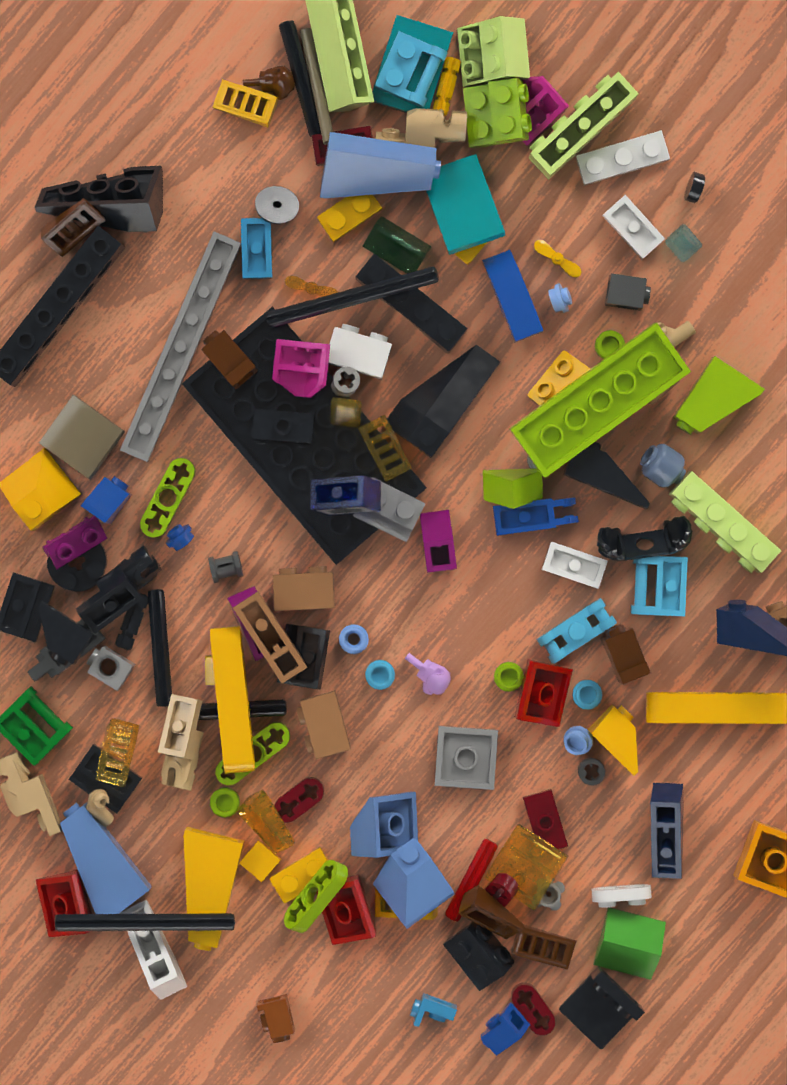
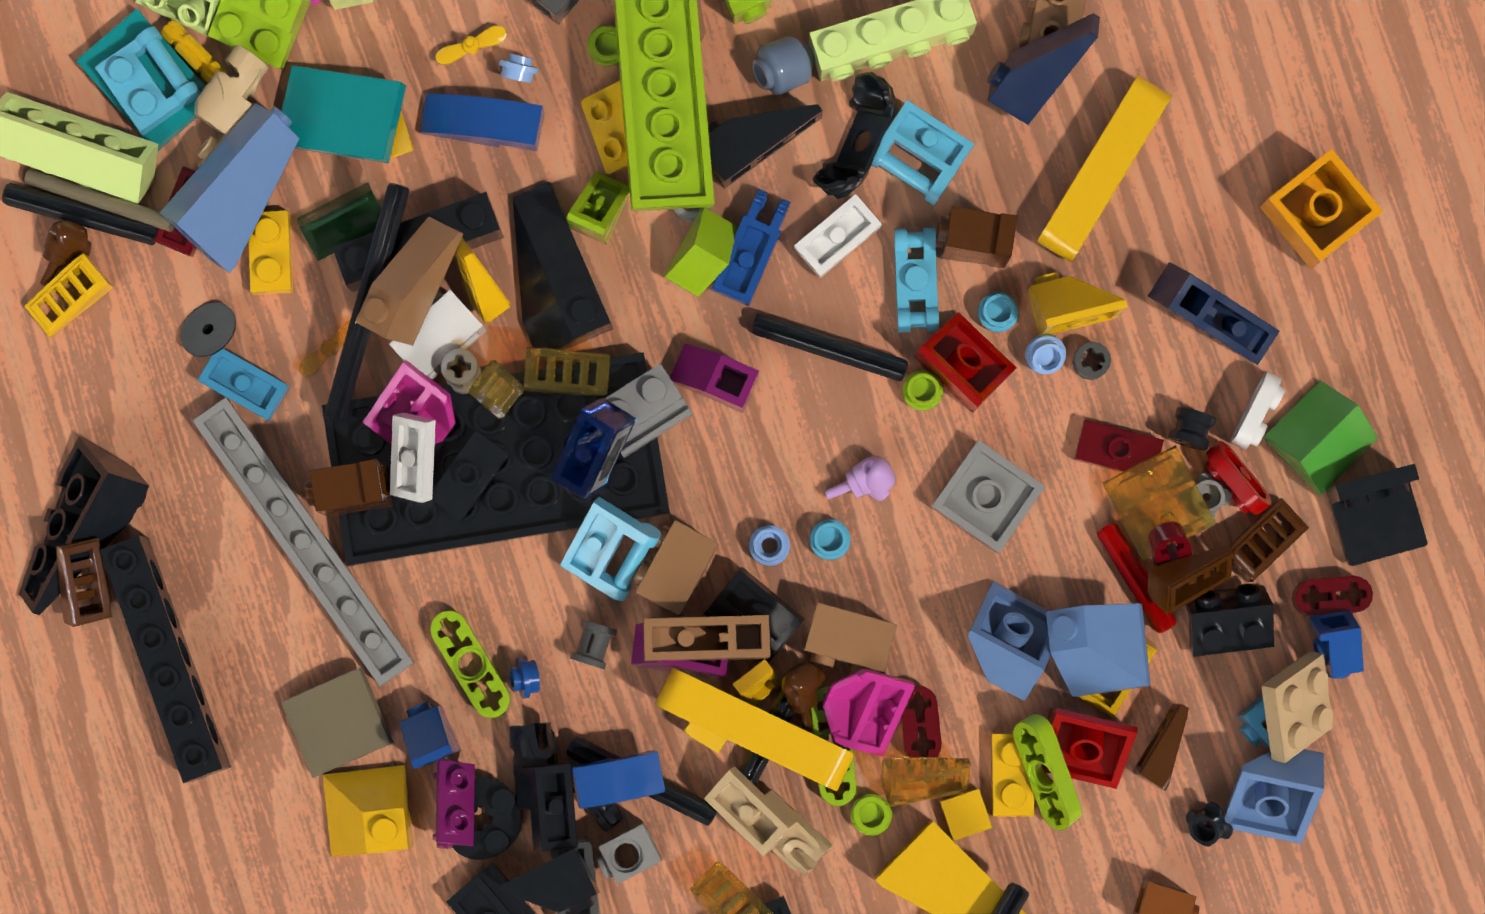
camera: 55 degrees left, 5 degrees down
(150, 633) = (618, 779): none -> blue slope
(262, 684) = (757, 683): none -> yellow tile
(272, 385) = (412, 457): none -> white plate
(274, 713) = (800, 690): none -> reddish brown piece
(286, 761) = (866, 709): none -> dark pink slope
(290, 532) = (598, 542): none -> medium azure plate
(339, 1018) = (1204, 833): none -> black plate
(366, 960) = (1161, 753): none -> reddish brown slope
(379, 318) = (409, 283): none -> medium nougat slope
(388, 1046) = (1277, 796): none -> medium blue slope
(405, 362) = (481, 288): none -> yellow slope
(448, 1027) = (1297, 706): none -> tan plate
(501, 601) = (829, 347): none -> black axle
(503, 403) = (598, 207): none -> lime slope
(574, 897) = (1227, 466): none -> red plate
(585, 860) = (1192, 428): none -> black wheel

